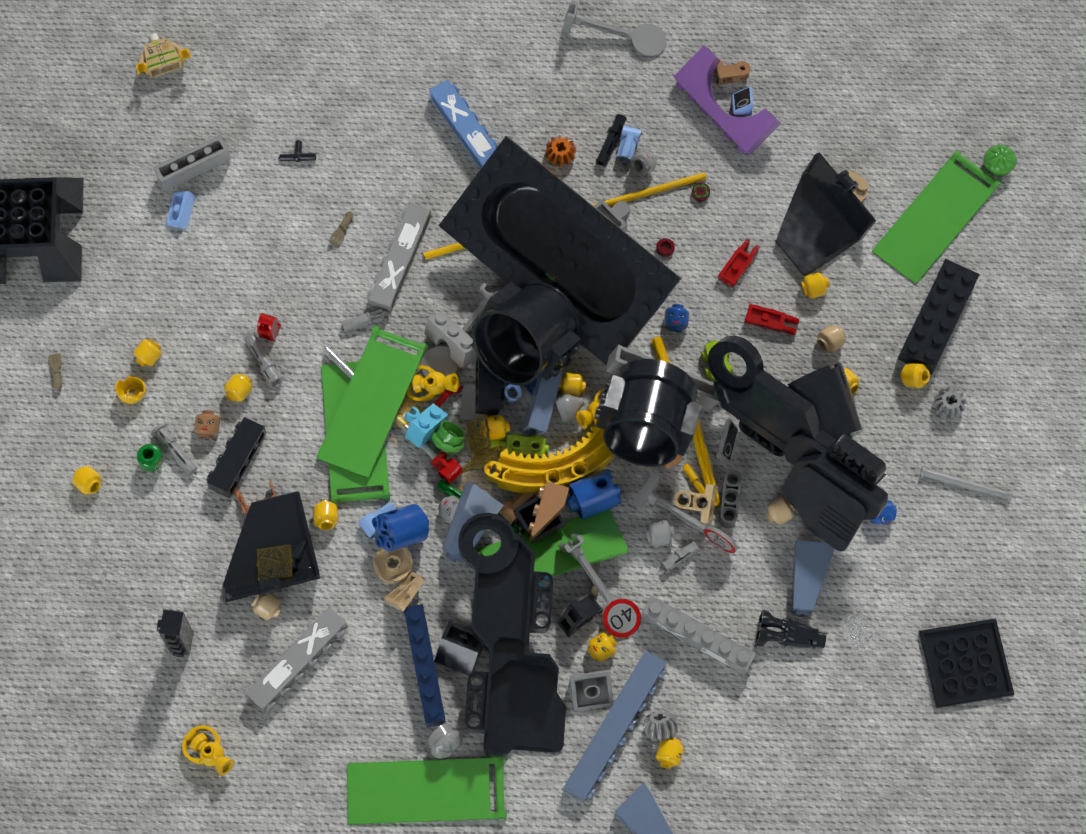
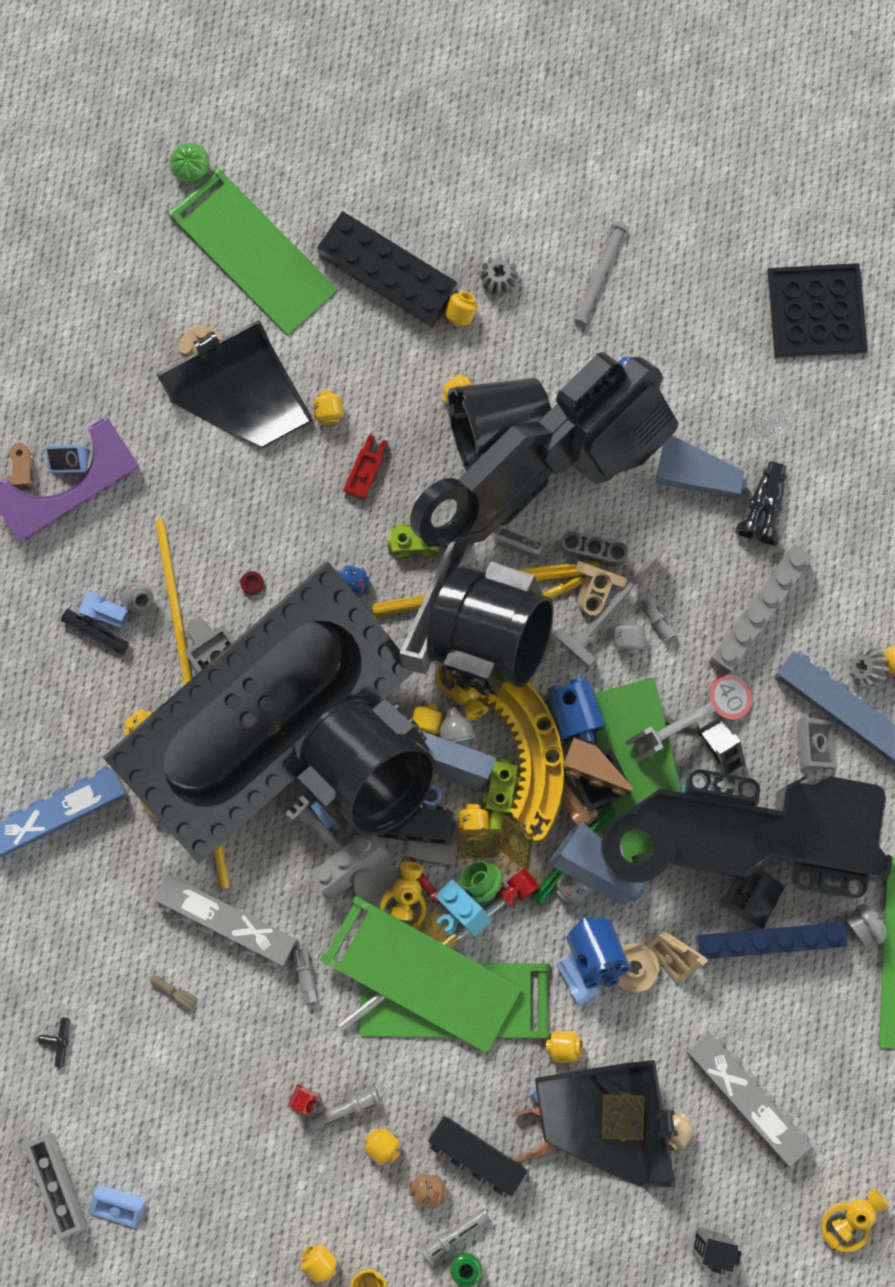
camera: 75 degrees left, 10 degrees up
(553, 151) = (102, 688): orange gear -> none
(602, 647) = (764, 724): yellow head -> none
(700, 192) = (181, 529): dark red tile -> none
(737, 264) = (287, 497): red hinge -> none
(780, 511) = (615, 492): tan head -> none
(831, 338) = (401, 399): tan head -> none

